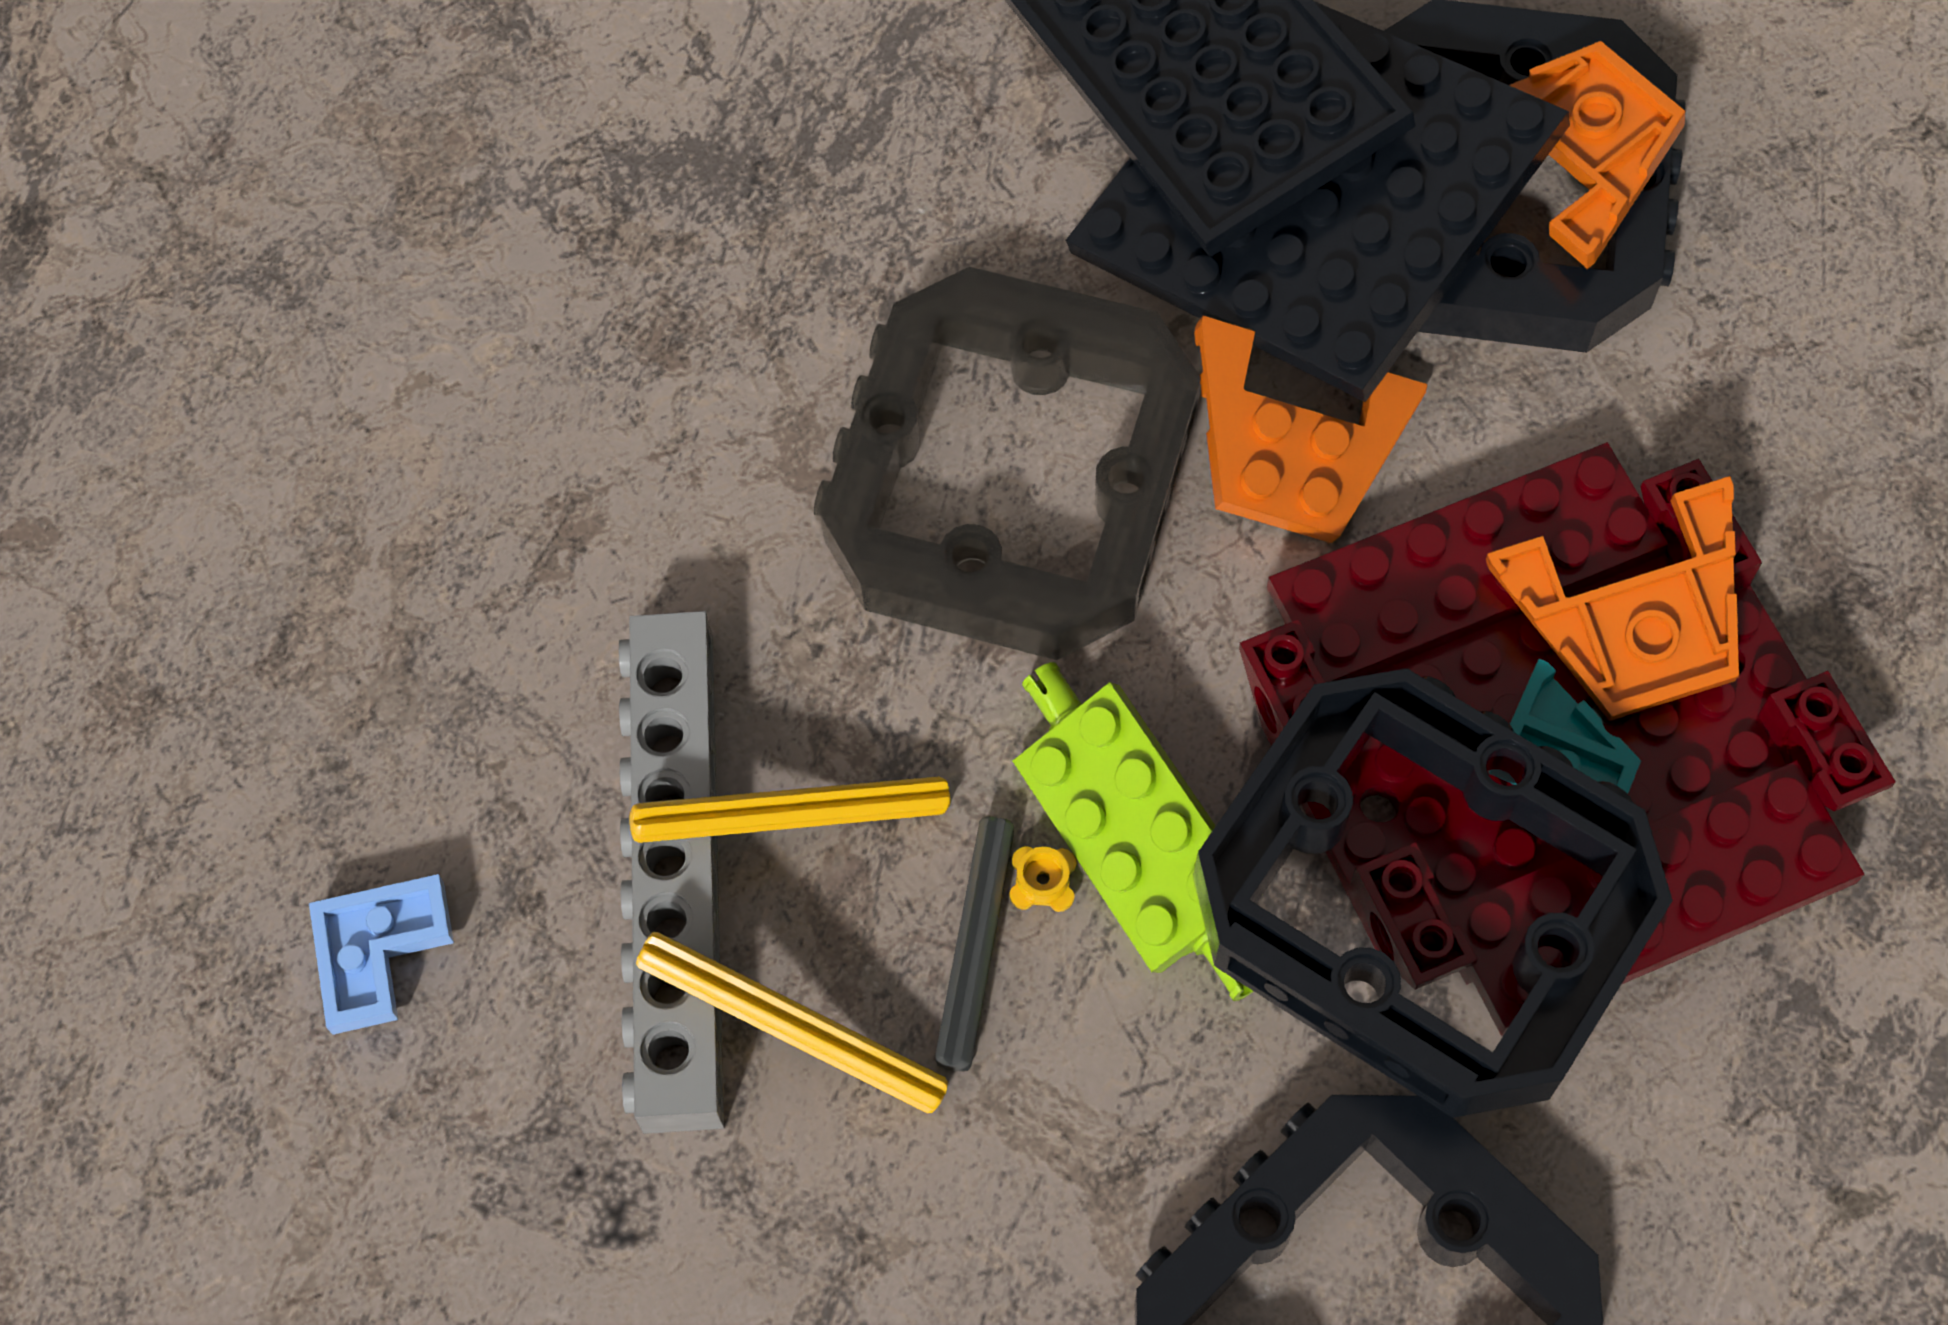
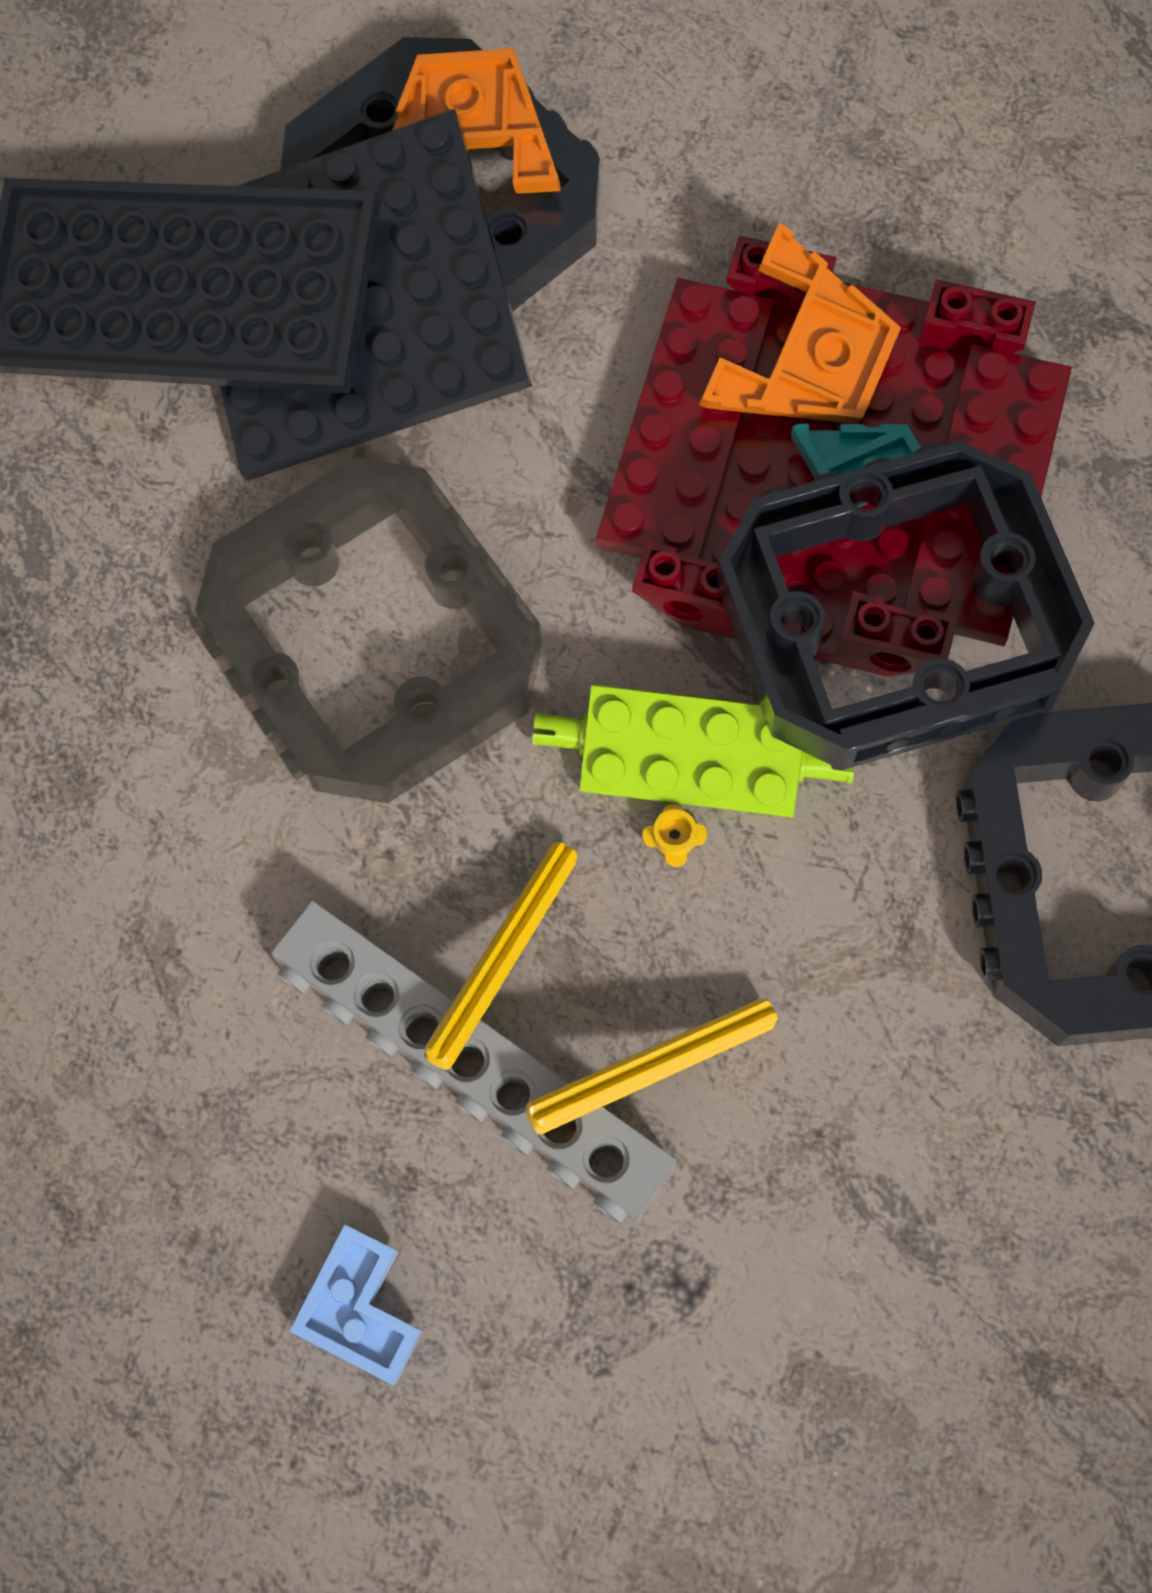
camera: 50 degrees left, 5 degrees up
(974, 944) = (684, 911): dark grey axle -> none
(1285, 460) = (517, 468): orange wing -> none

